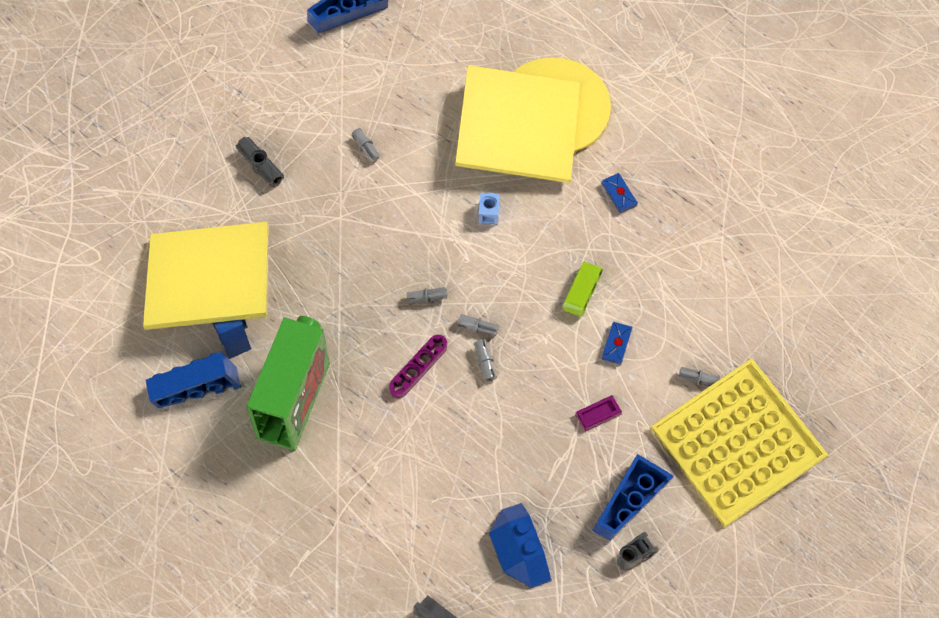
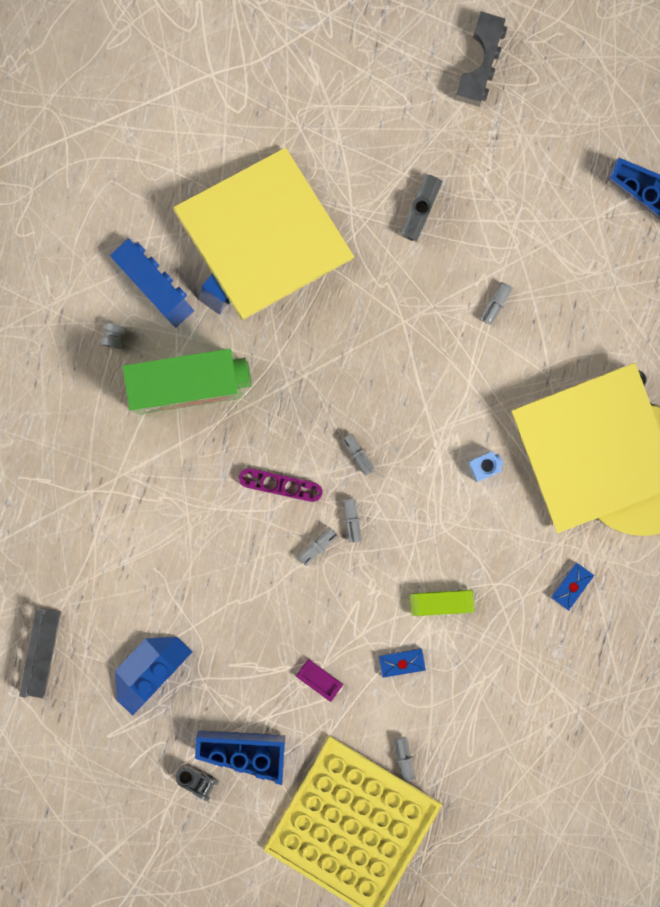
camera: 60 degrees right, 25 degrees up
(160, 59) = (487, 34): none -> flat silver arch
(216, 434) = (115, 331): none -> light grey wheel

